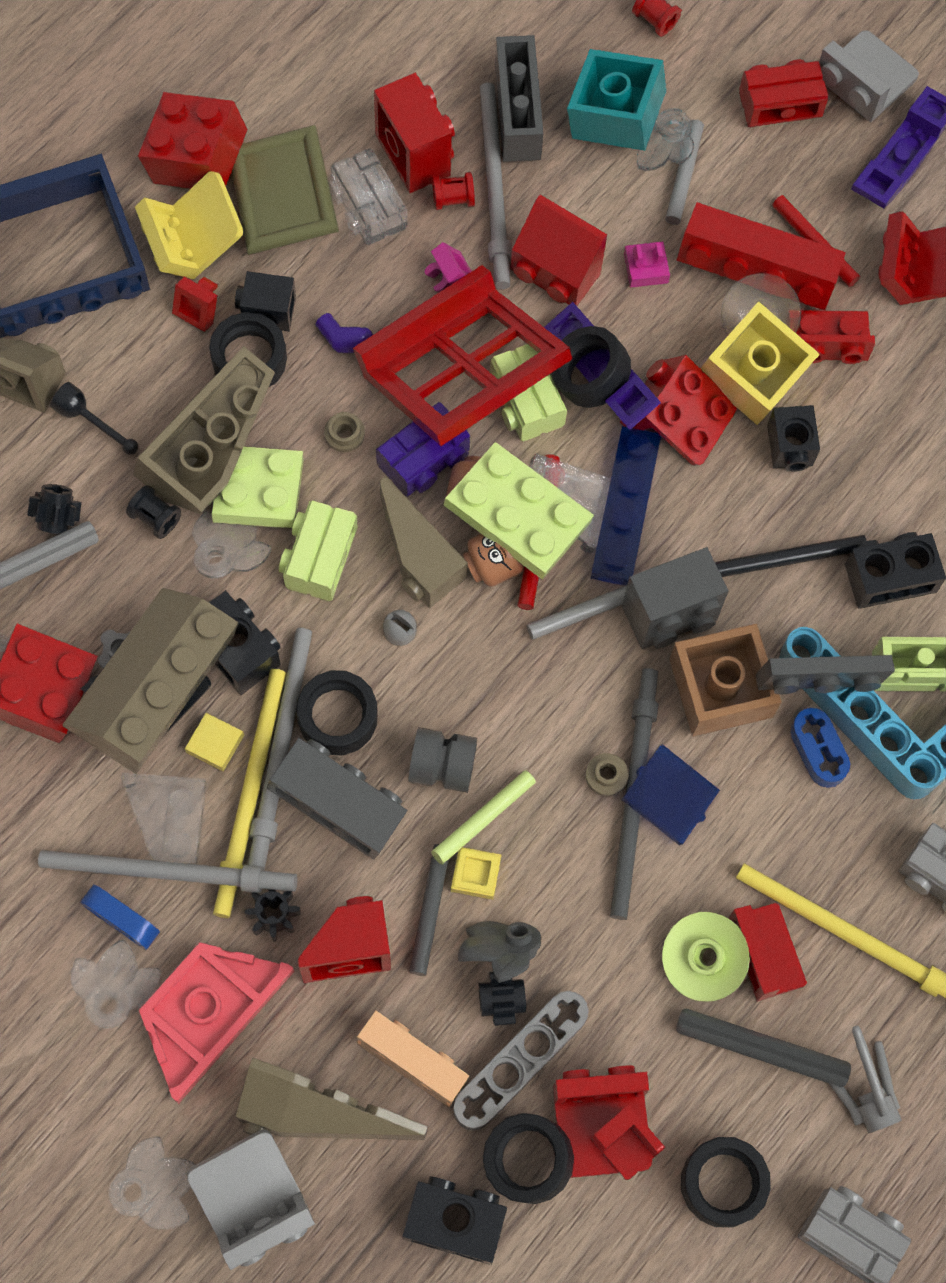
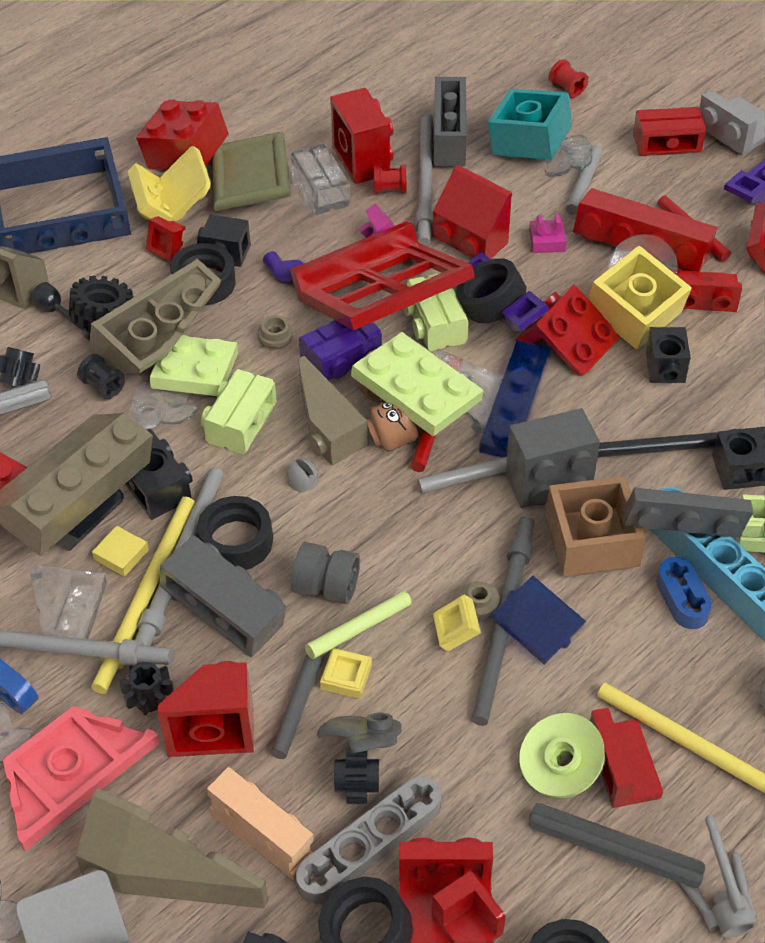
camera: 10 degrees right, 20 degrees down
(138, 392) = (95, 299): none -> black tyre
(586, 807) = (456, 623): none -> light yellow tile

